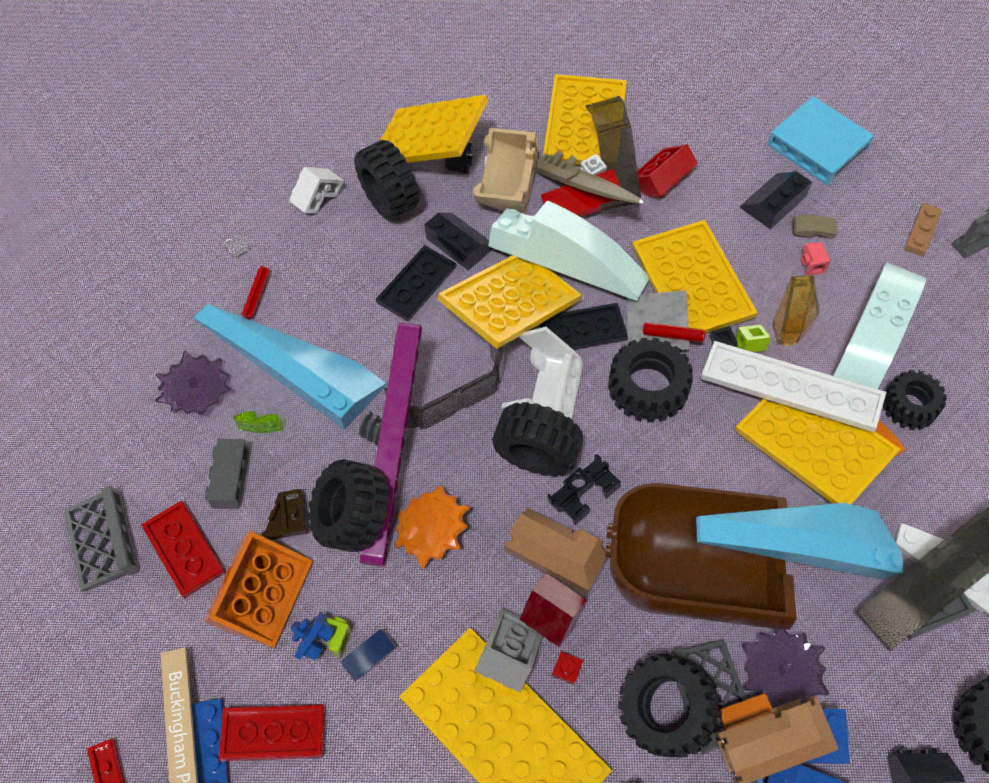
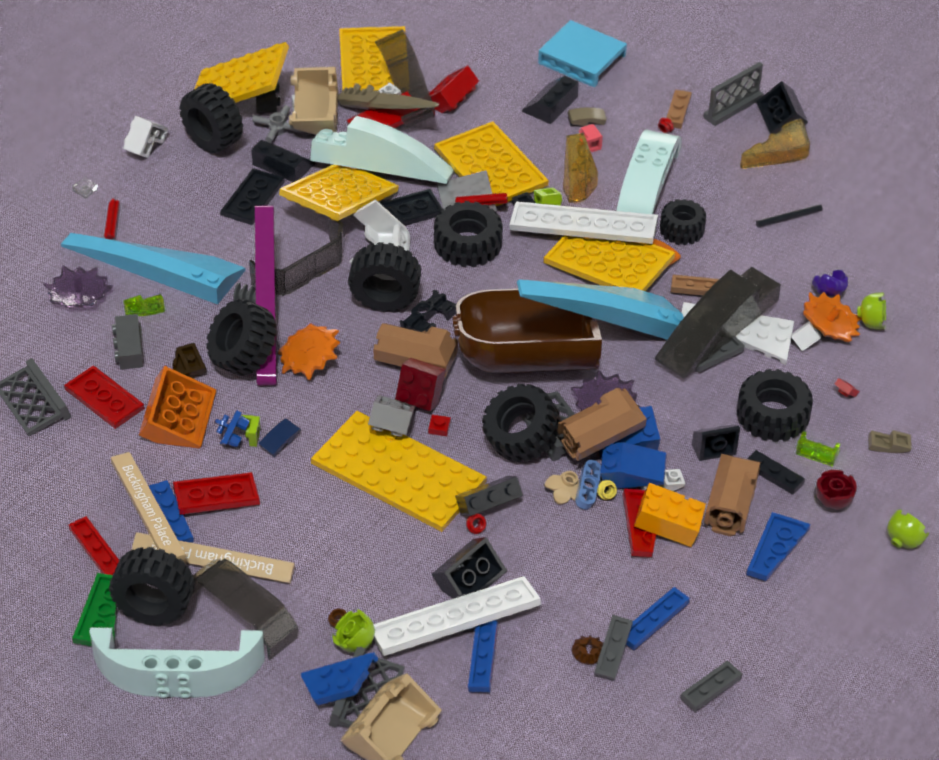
camera: 15 degrees left, 15 degrees down
(461, 188) = (277, 123): none -> light grey bar
(906, 251) = (665, 125): none -> red plate
(924, 500) = (691, 284): none -> medium nougat plate

